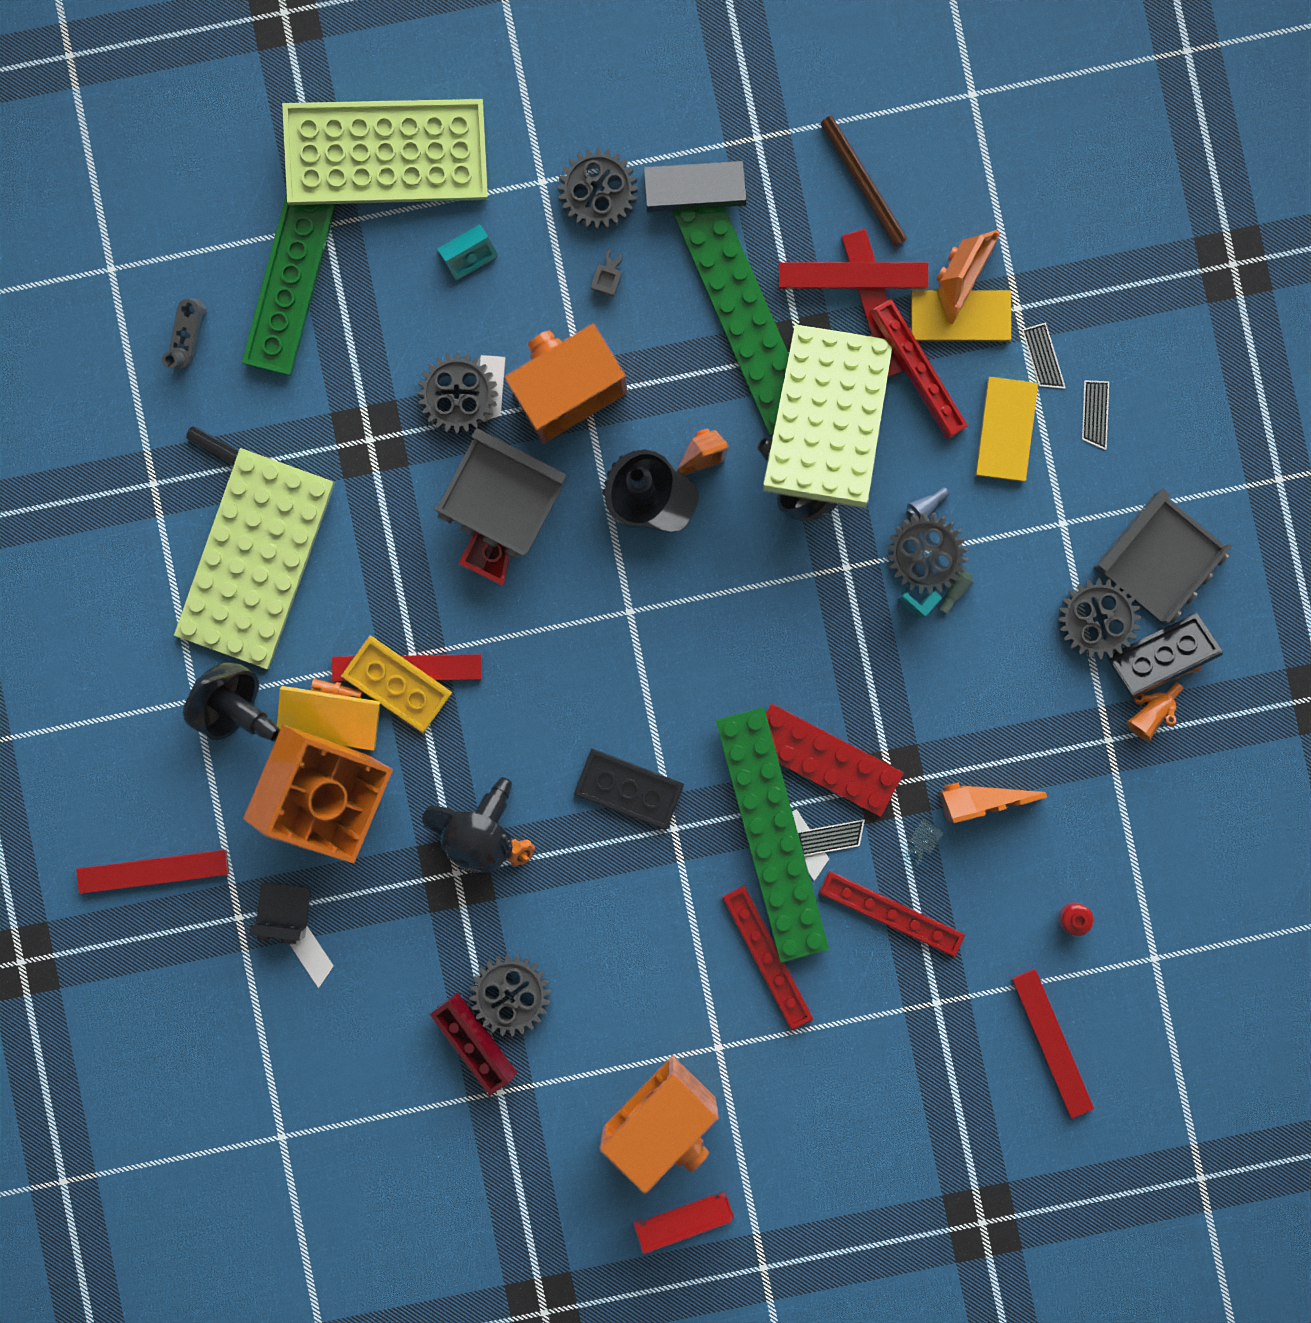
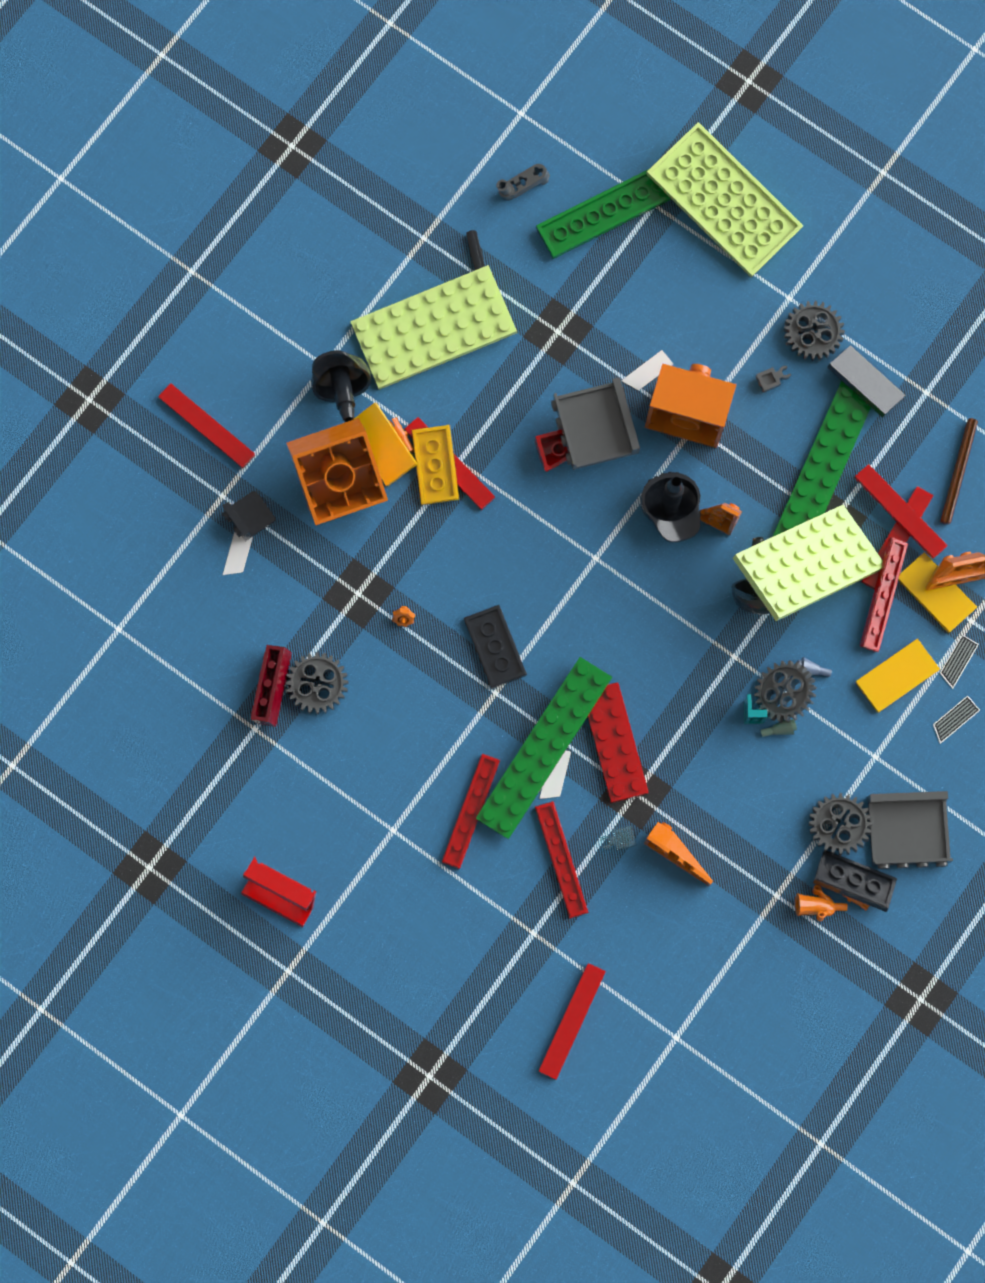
camera: 40 degrees right, 10 degrees down
(458, 371) = (641, 345): dark grey gear -> none
(468, 252) = (712, 292): teal panel -> none
(475, 838) = (389, 579): black piece -> none
(661, 1126) = (322, 826): orange brick -> none
(831, 837) = (572, 786): sticker -> none
(1075, 919) = (656, 966): red head -> none

